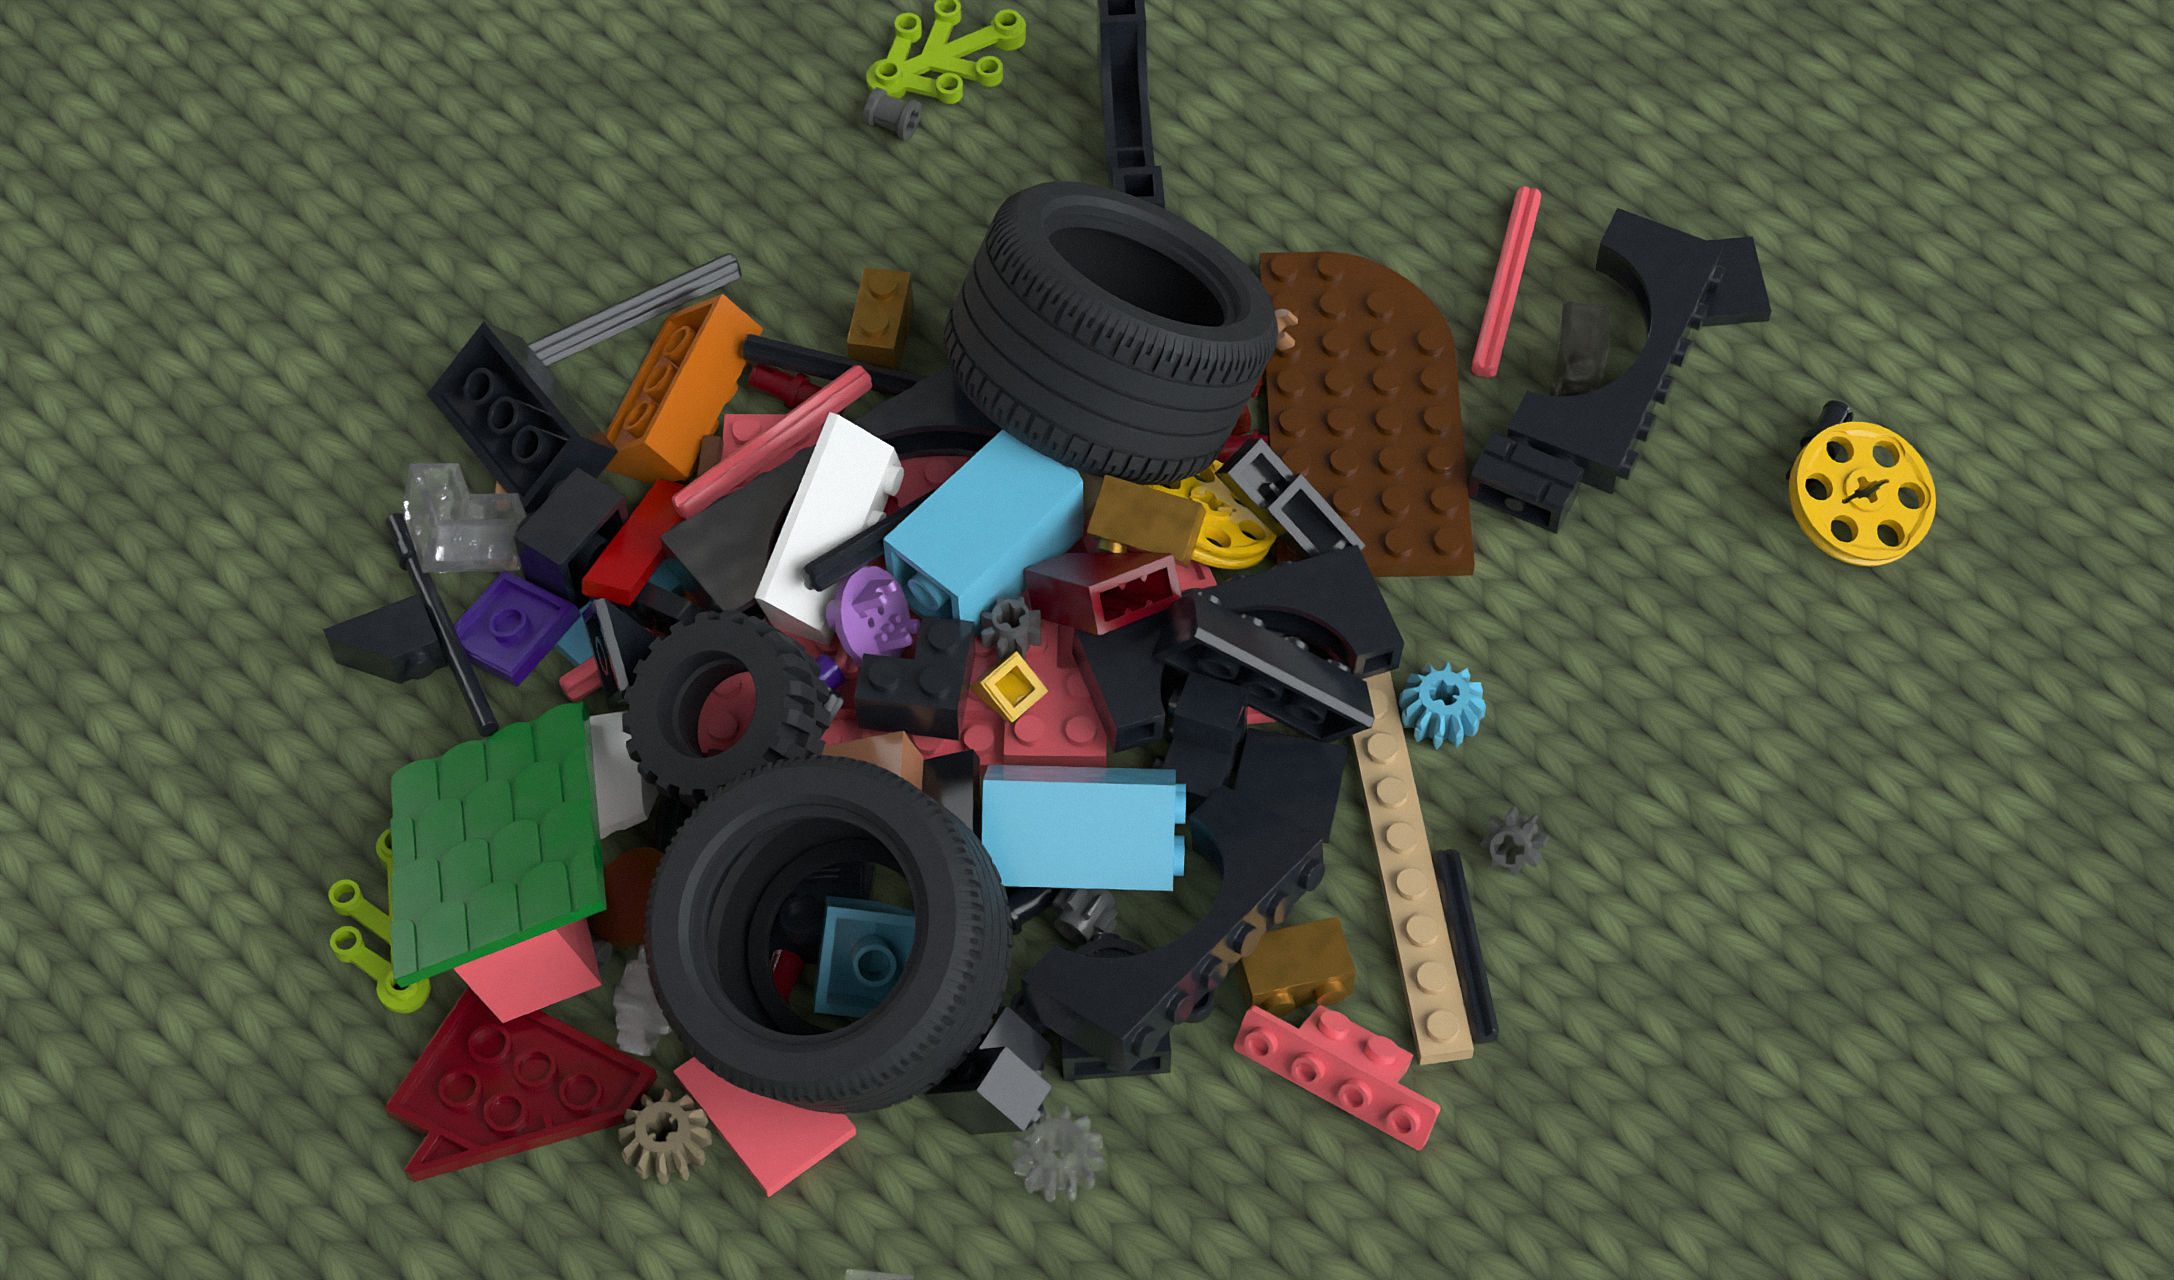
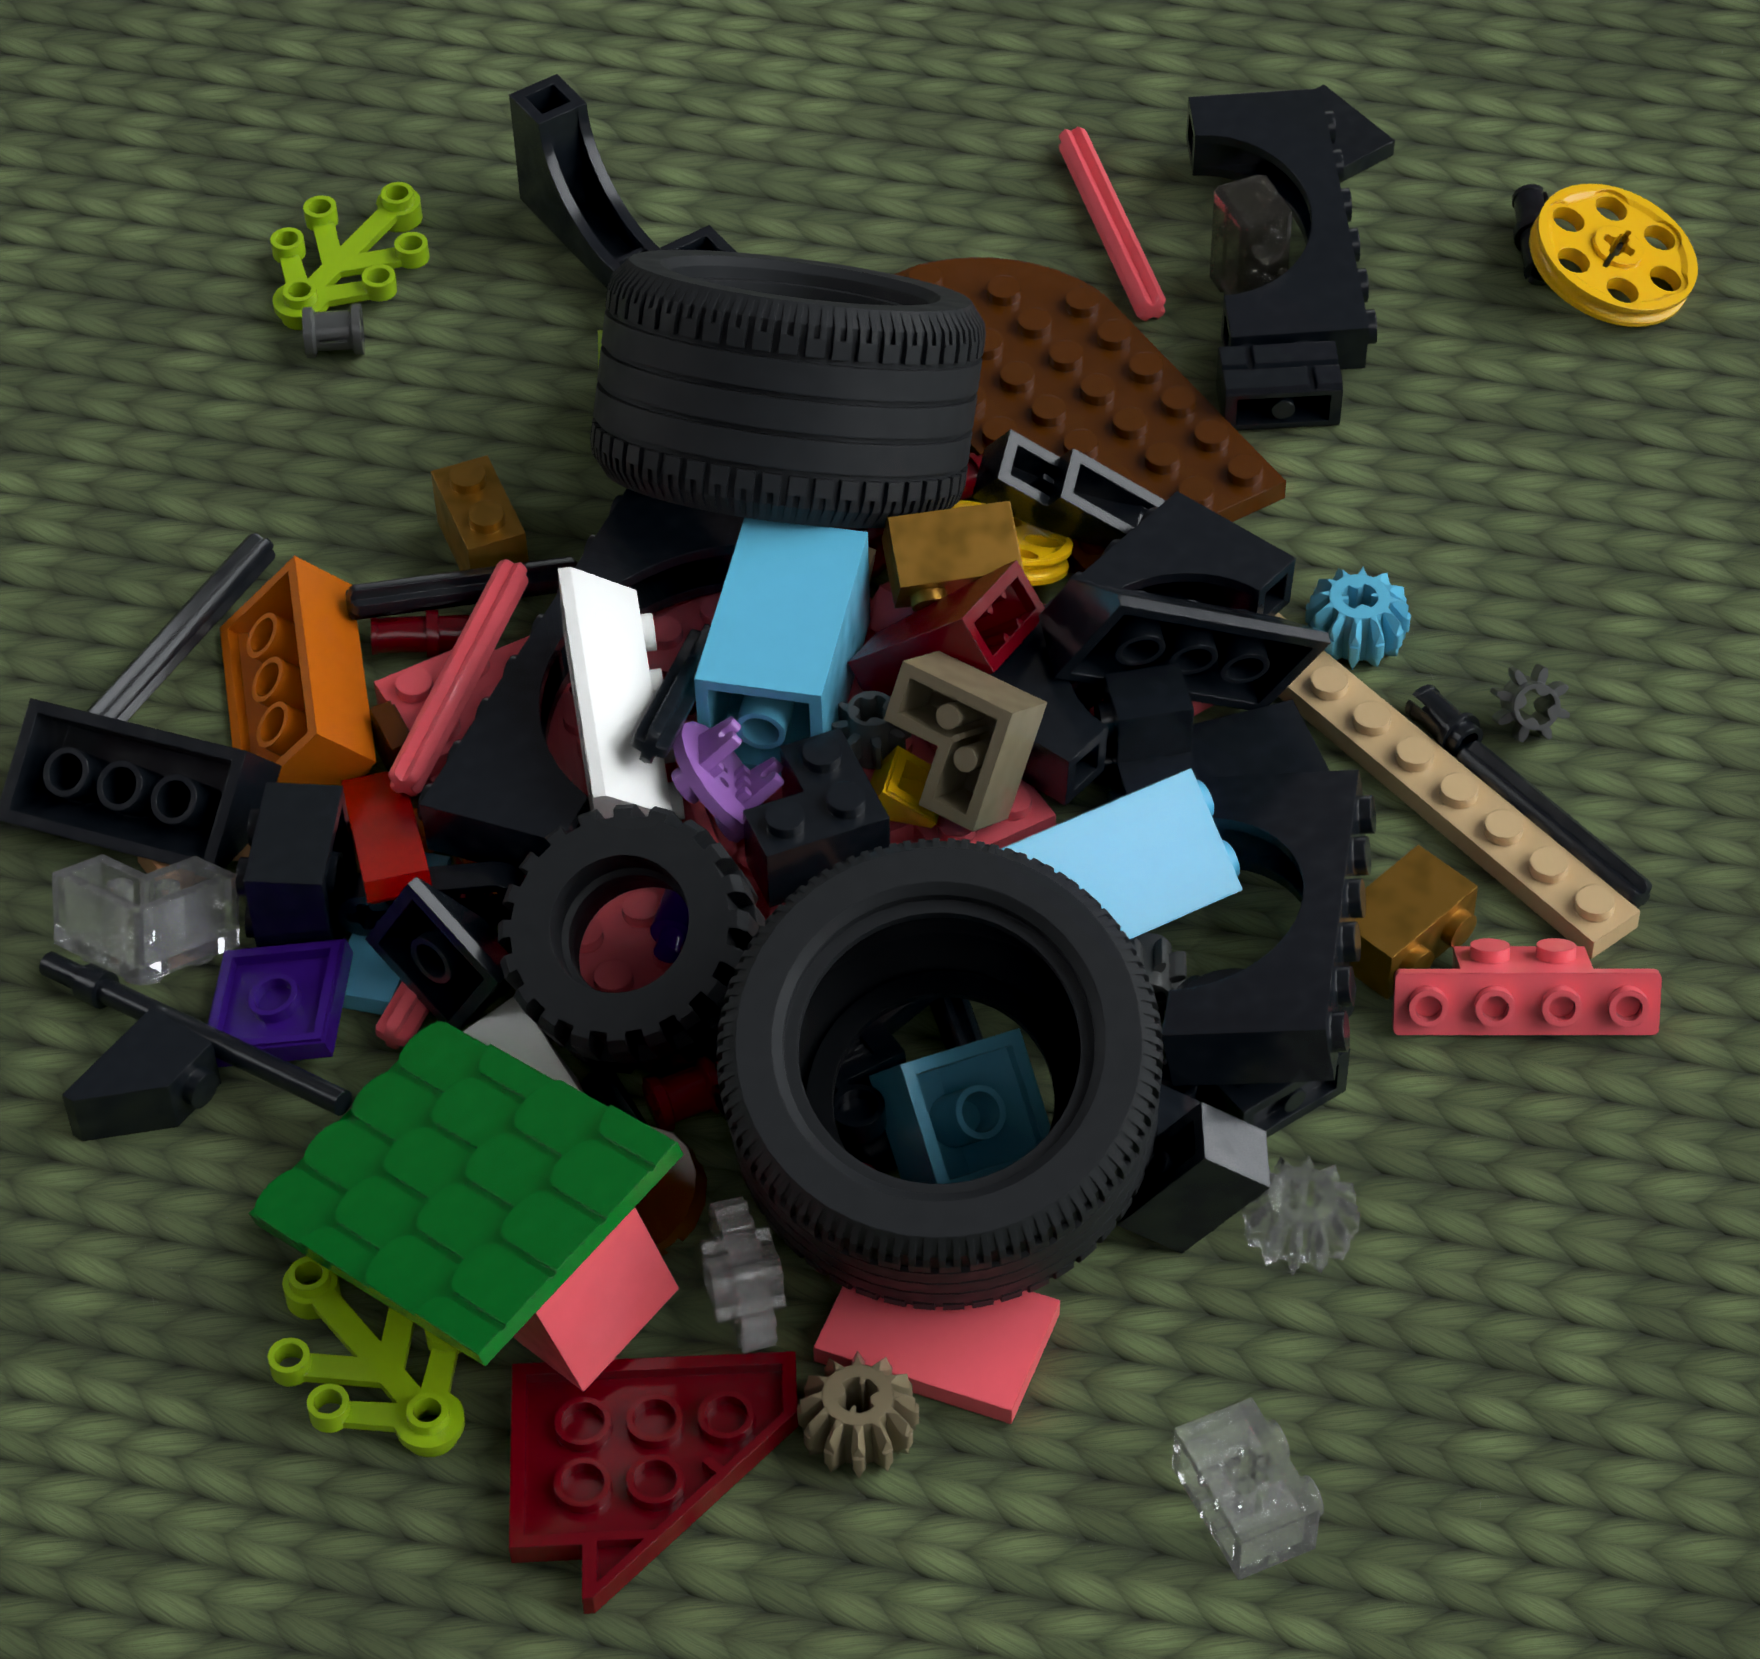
camera: 30 degrees left, 10 degrees down
(1060, 672) = (980, 734): none -> dark tan brick
(1446, 820) = (1443, 720): none -> black pin

